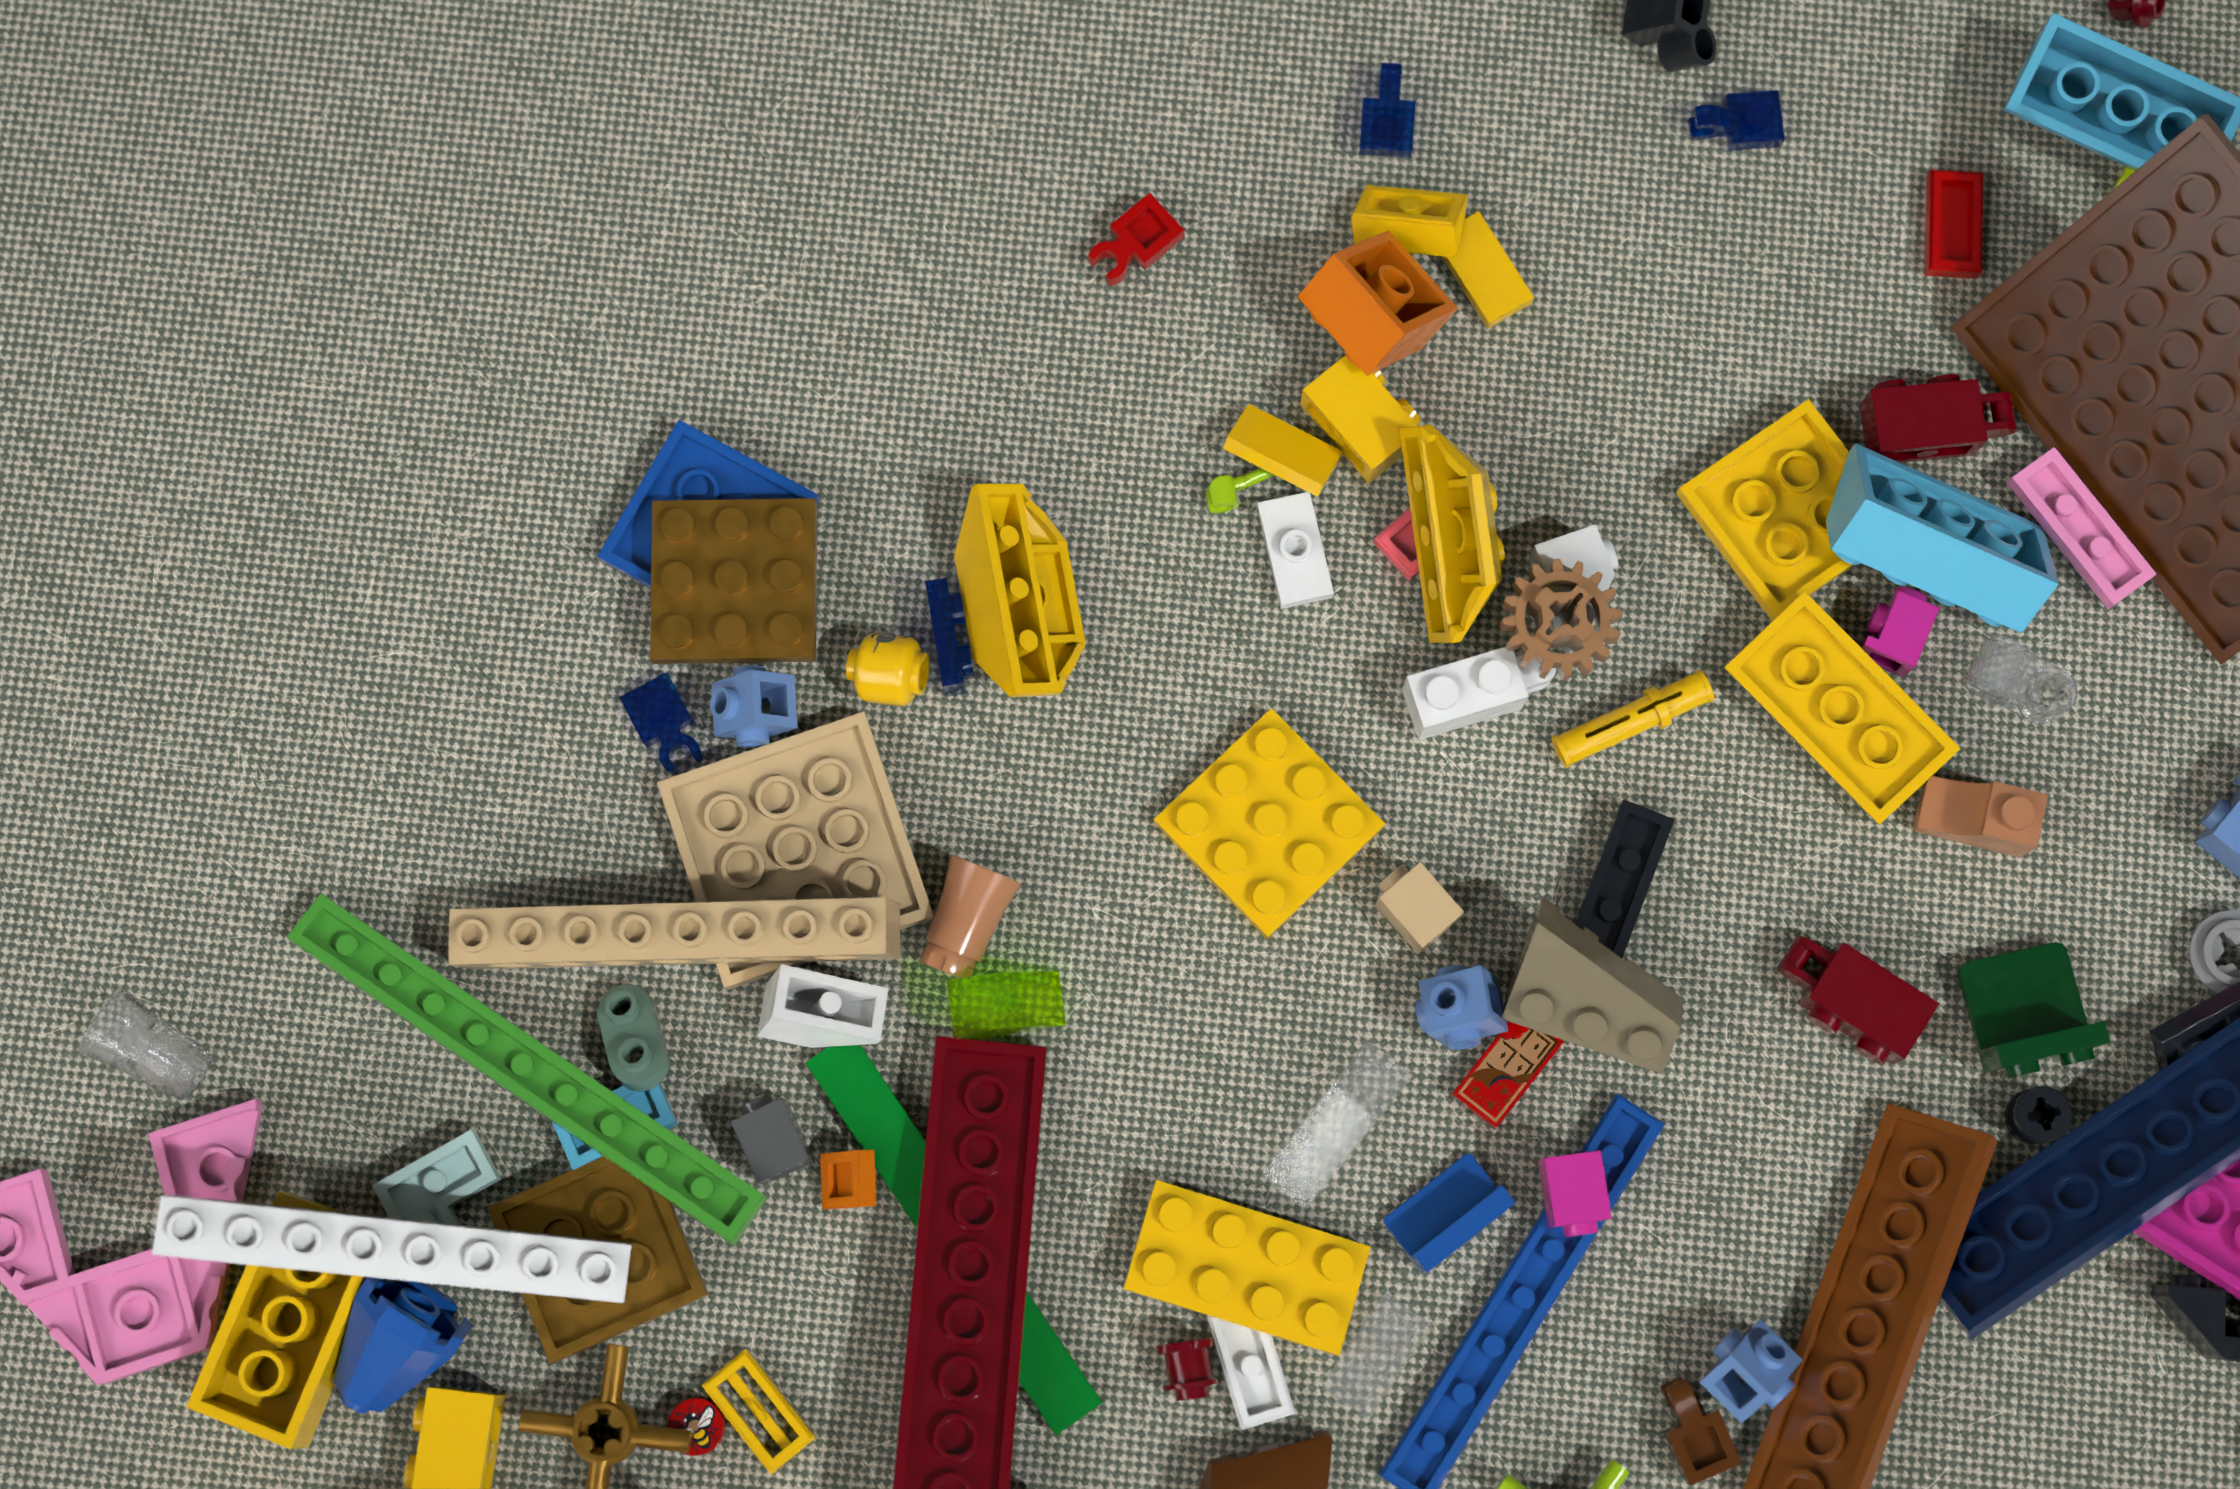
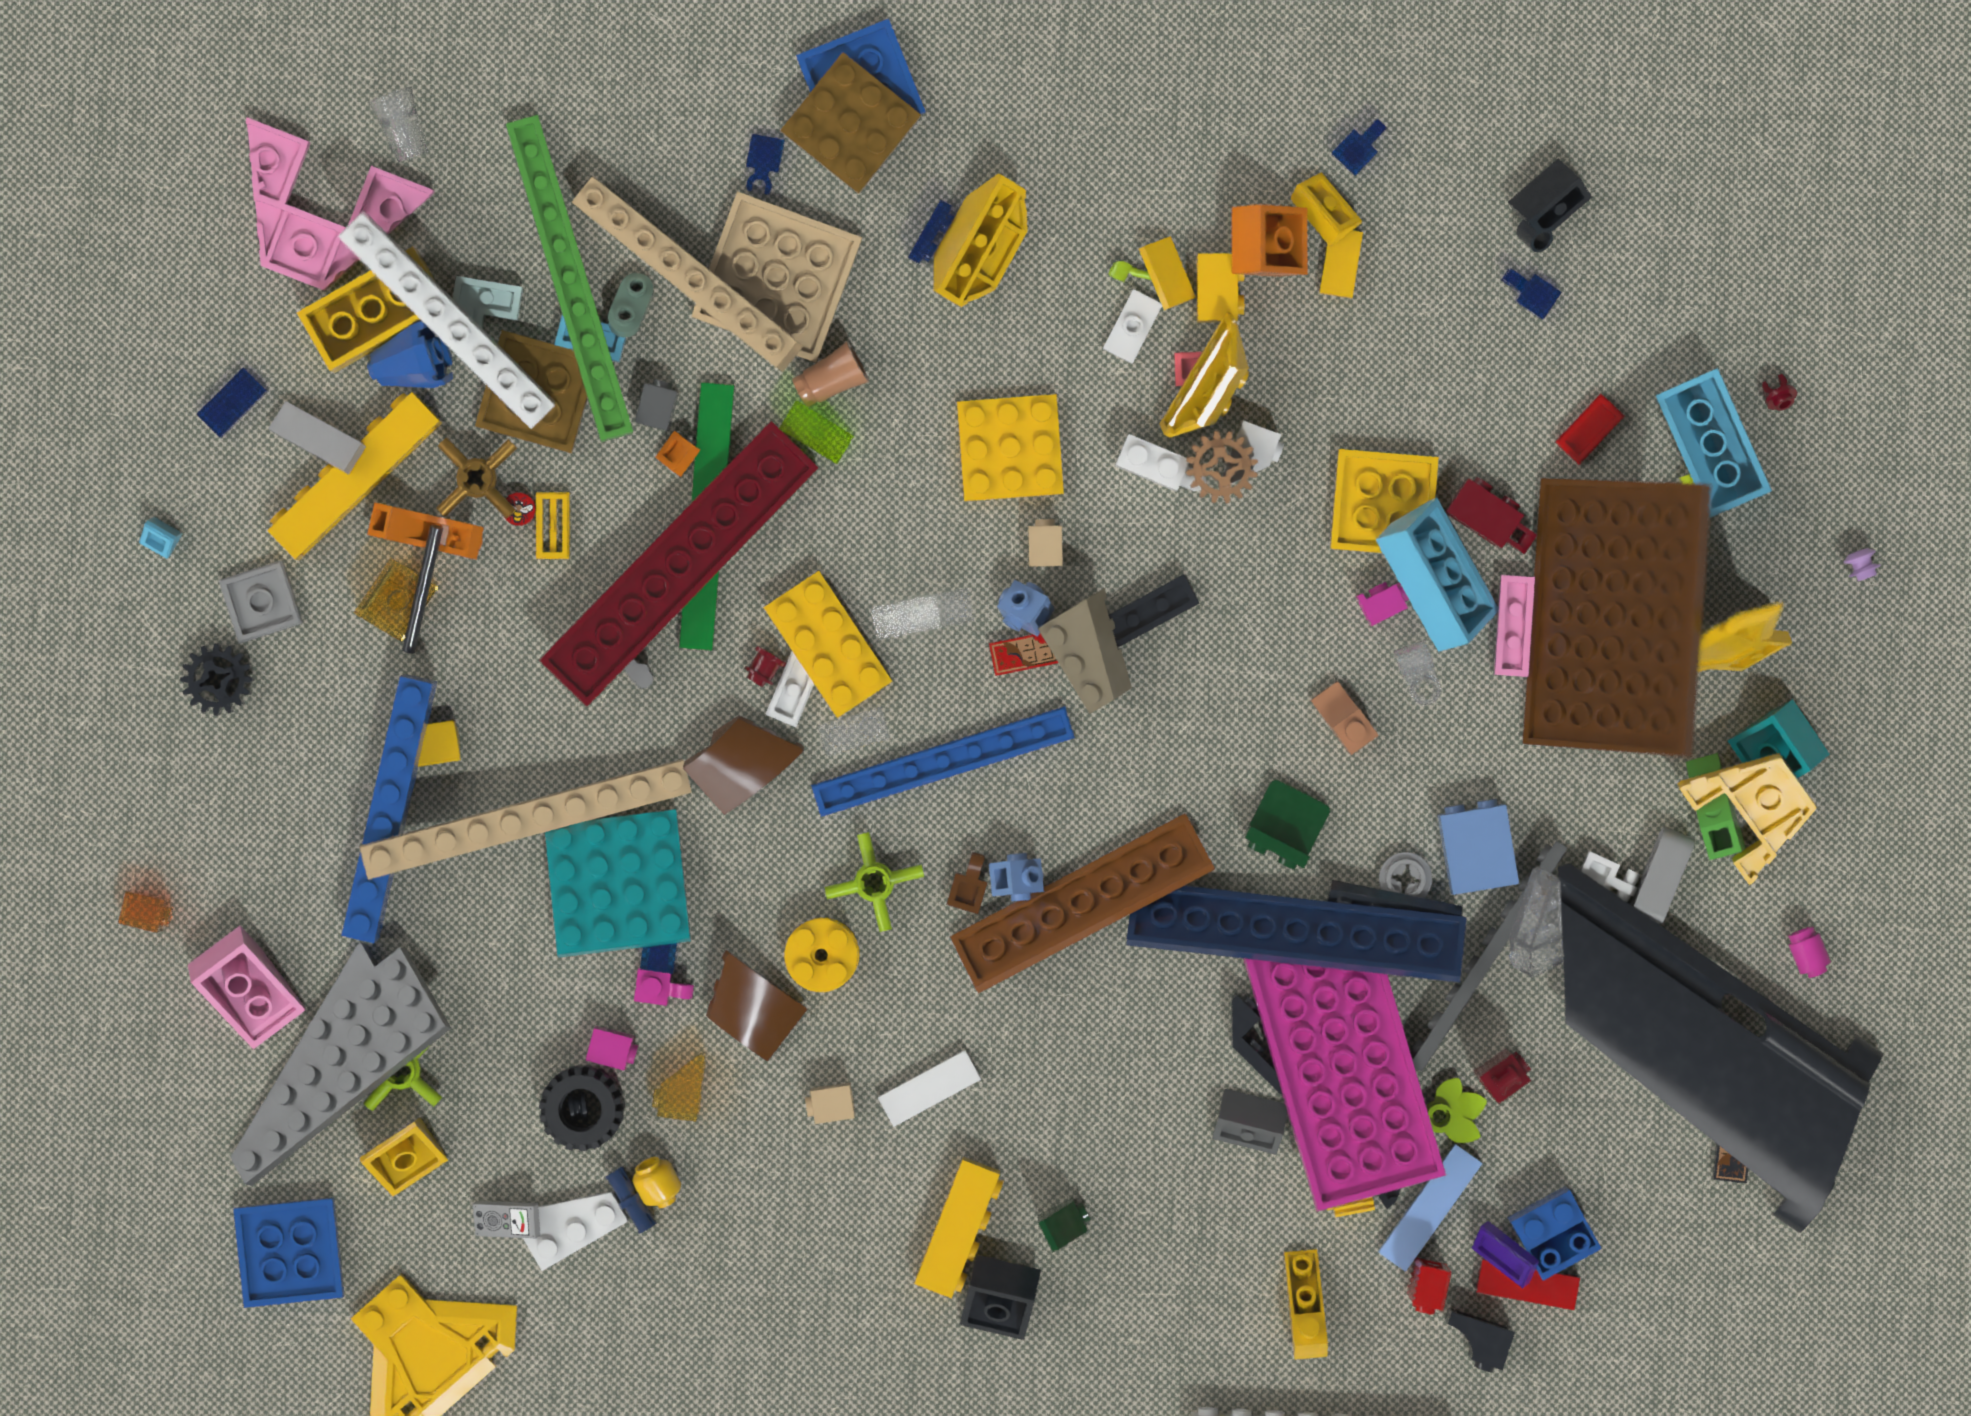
camera: 35 degrees right, 10 degrees up
(753, 705) = (811, 192): medium blue brick -> none
(821, 1009) = (727, 364): white slope -> none
(888, 669) = (890, 226): yellow head -> none
(1140, 234) = (1190, 108): red plate -> none
(1447, 1213) = (940, 695): blue panel -> none
(1575, 1192) = (1004, 734): dark pink brick -> none
(1653, 709) = (1188, 531): yellow pin -> none
(1842, 708) = (1322, 616): yellow plate -> none
(1859, 999) = (1212, 756): dark red brick -> none
(2026, 1119) = (1245, 872): black wheel -> none

